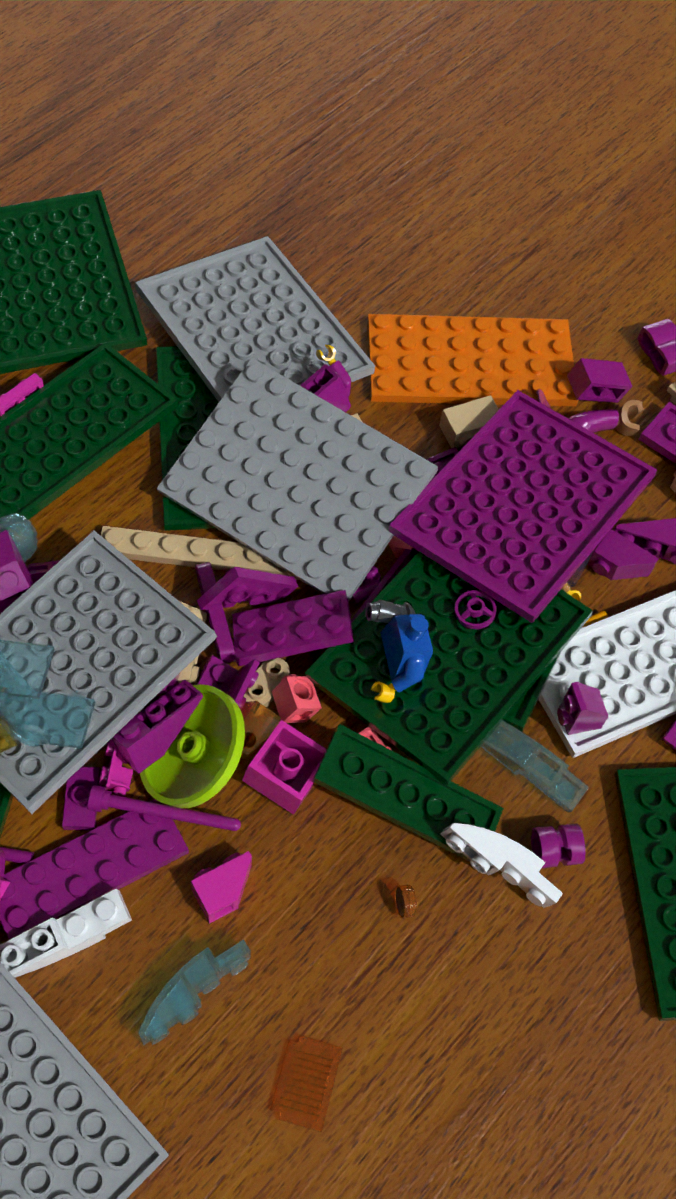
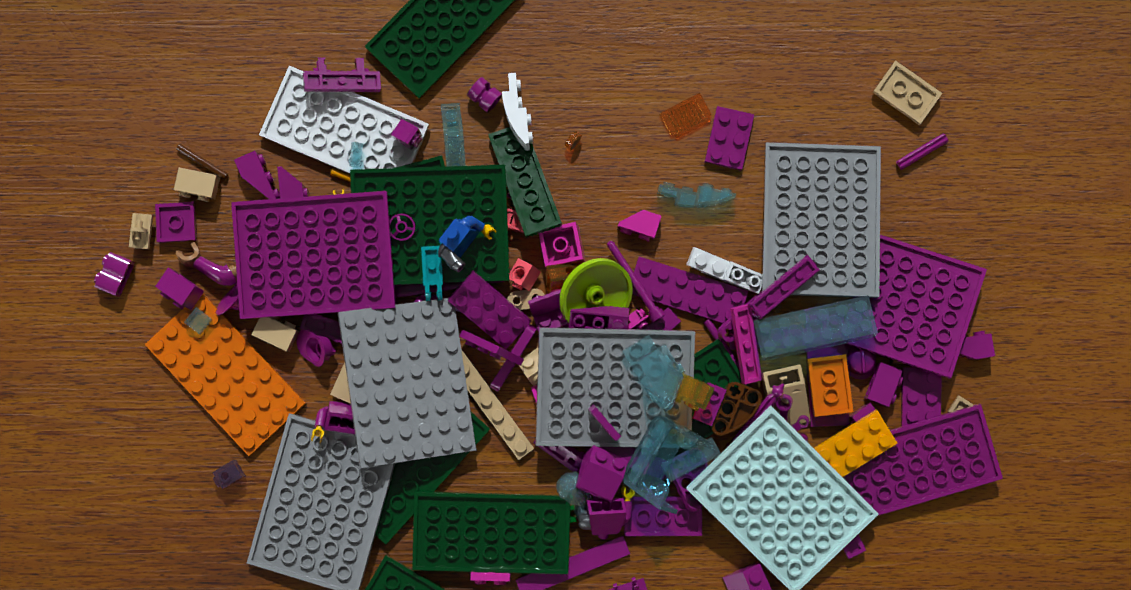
camera: 125 degrees left, 25 degrees up
(38, 612) = (604, 422): none -> magenta tile
(224, 1112) = (729, 138): none -> magenta plate
(367, 285) = (228, 474): none -> clear purple brick
(390, 590) = (432, 270): none -> teal hinge
(420, 443) = (314, 347): none -> magenta piece
(550, 370) = (198, 320): none -> clear light blue tile
(603, 642) = (356, 154): none -> clear light blue pin

